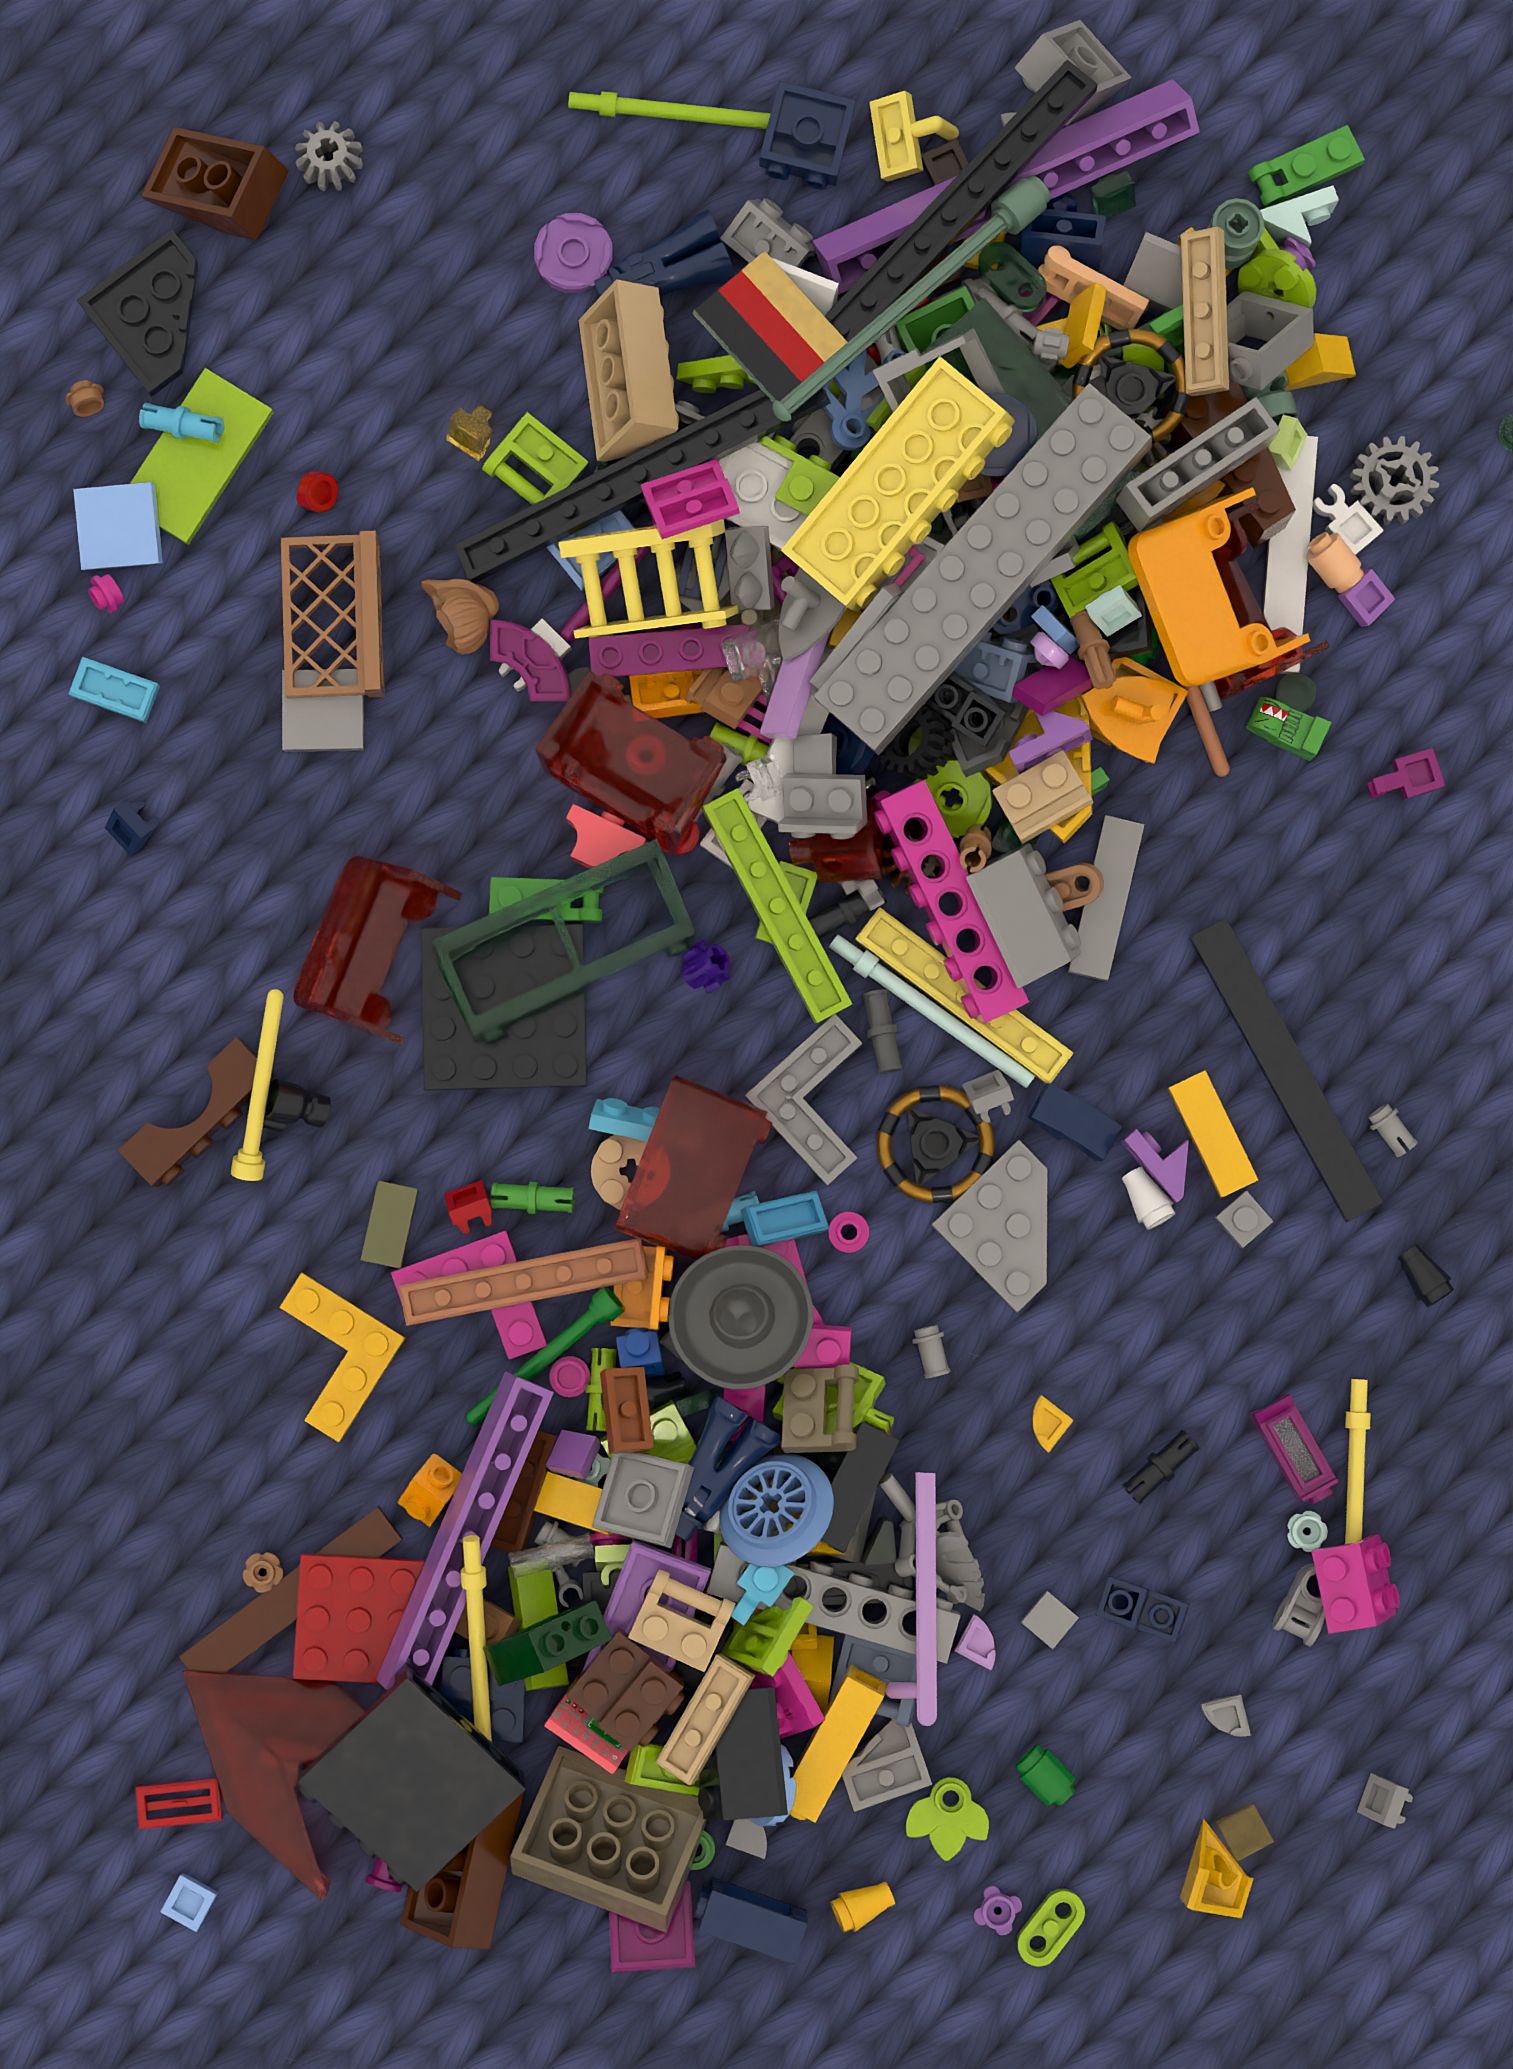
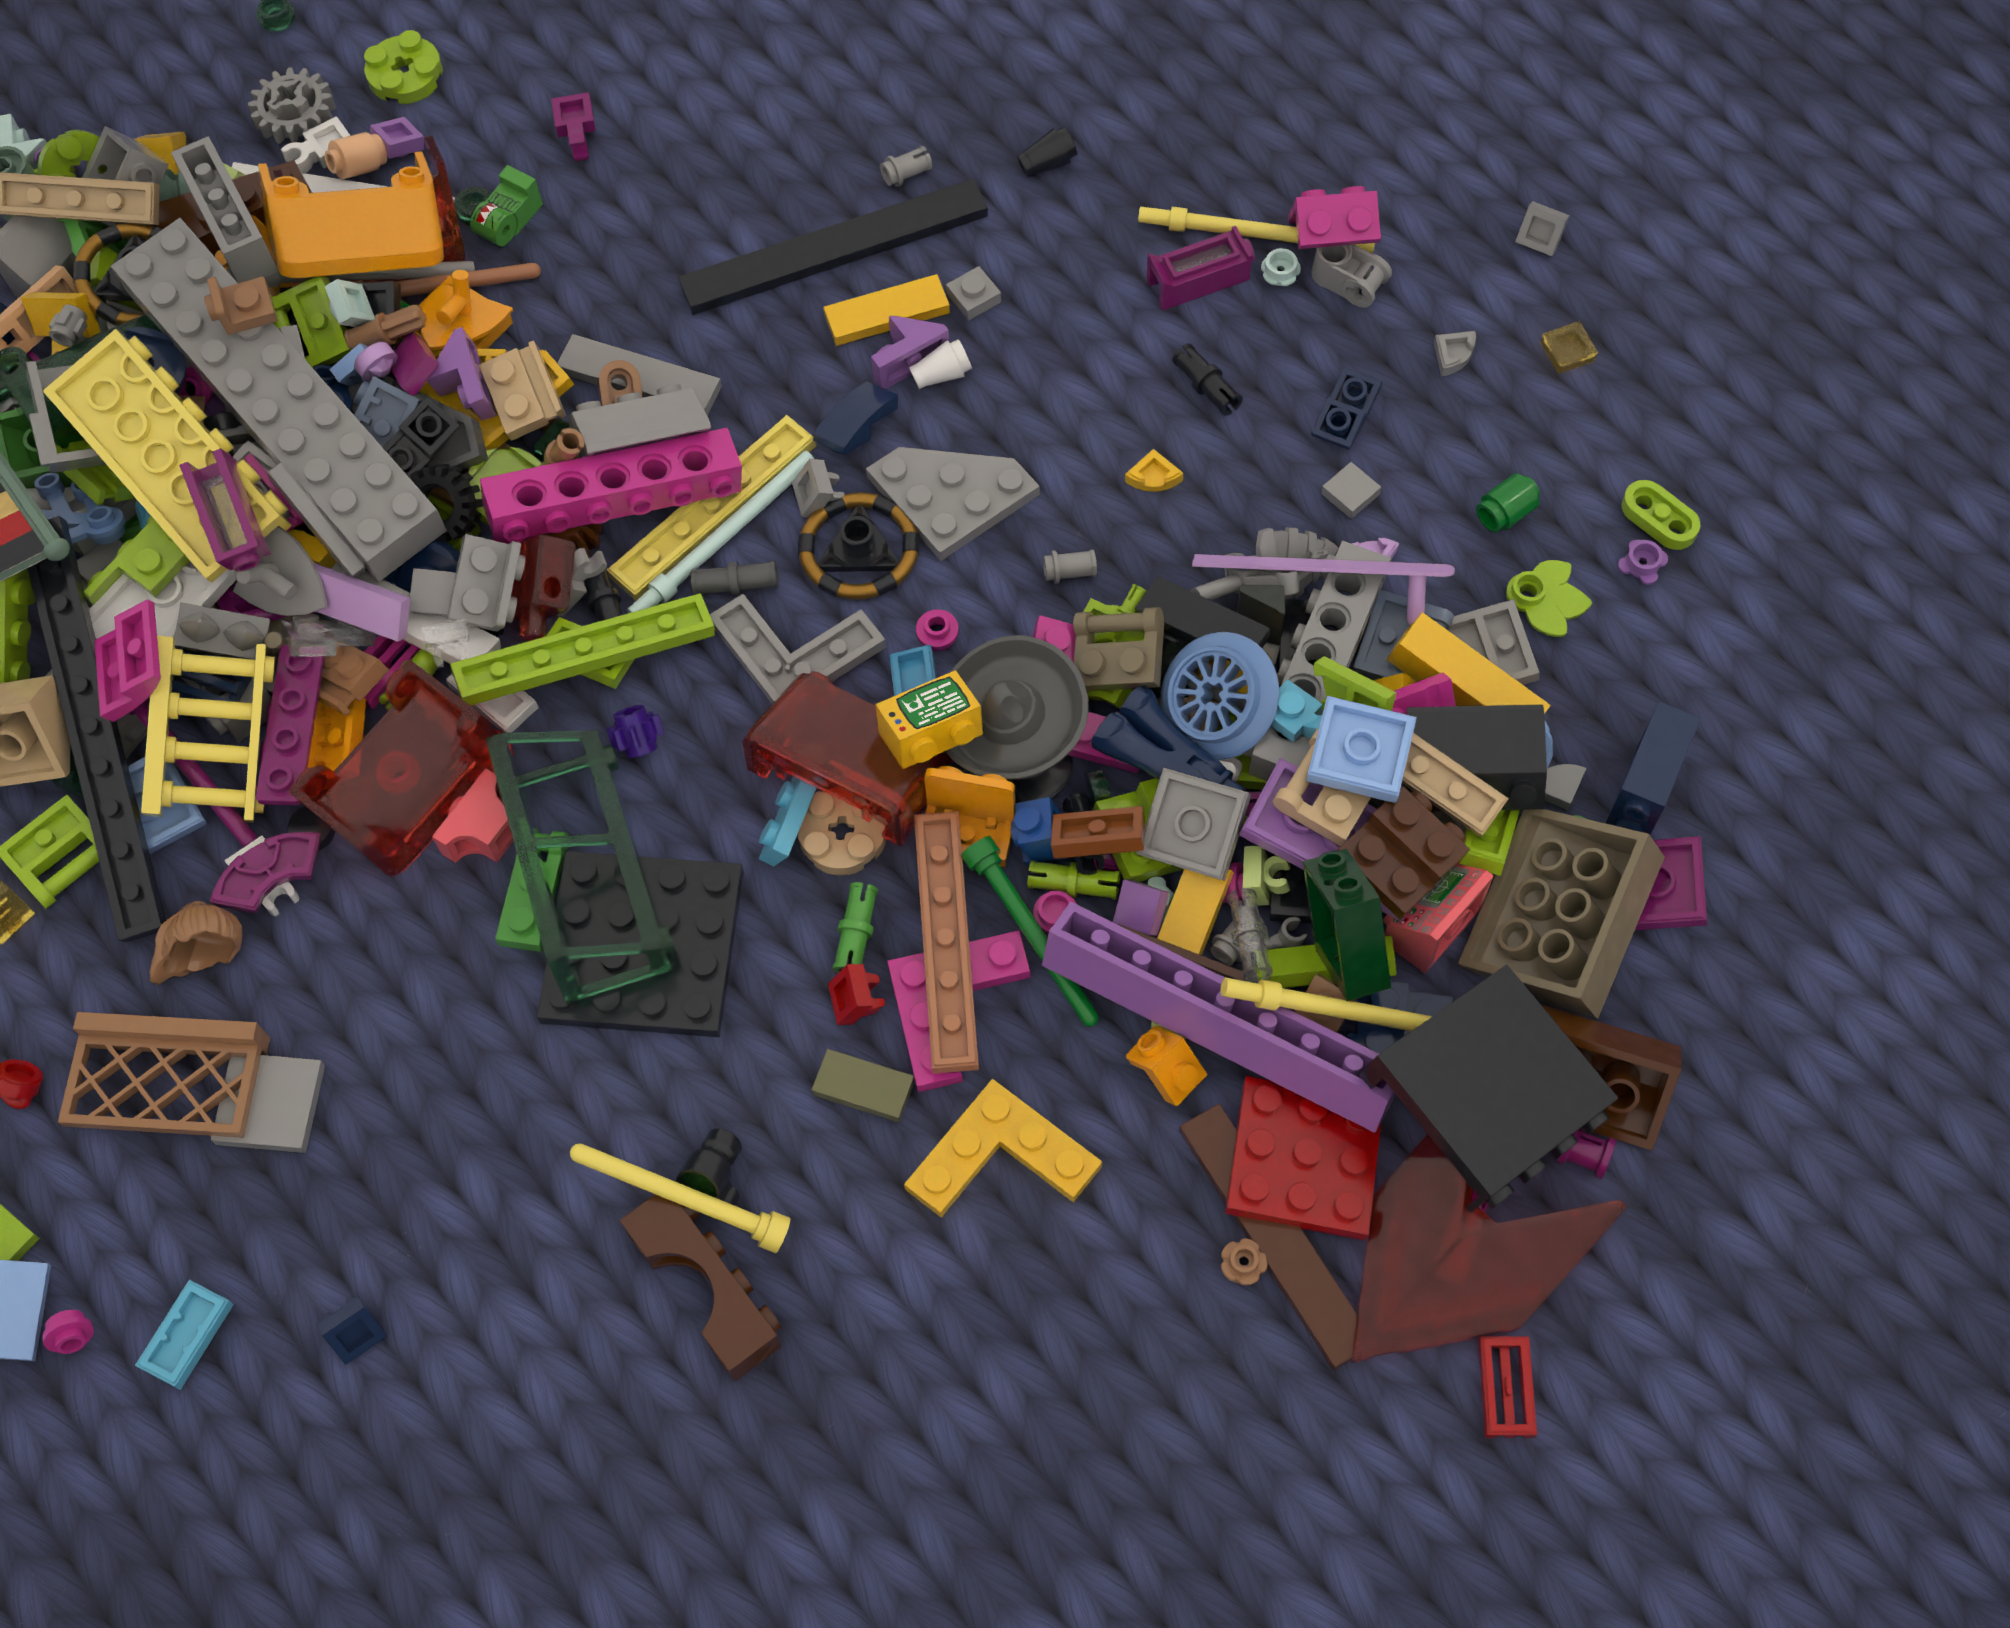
camera: 80 degrees left, 20 degrees down
(189, 1902) = (1624, 1385): light blue tile -> none
(360, 942) = (528, 1083): clear red windscreen -> none
(708, 1245) = (929, 719): none -> yellow brick
(711, 1647) = (1361, 749): none -> light blue tile
(832, 559) = (226, 513): none -> magenta window
(861, 1905) = (1637, 682): yellow cone -> none
(1052, 522) = (241, 304): none -> medium nougat bracket
(1214, 1878) = (1612, 378): yellow slope -> none
(1469, 560) = (400, 51): none -> lime plate

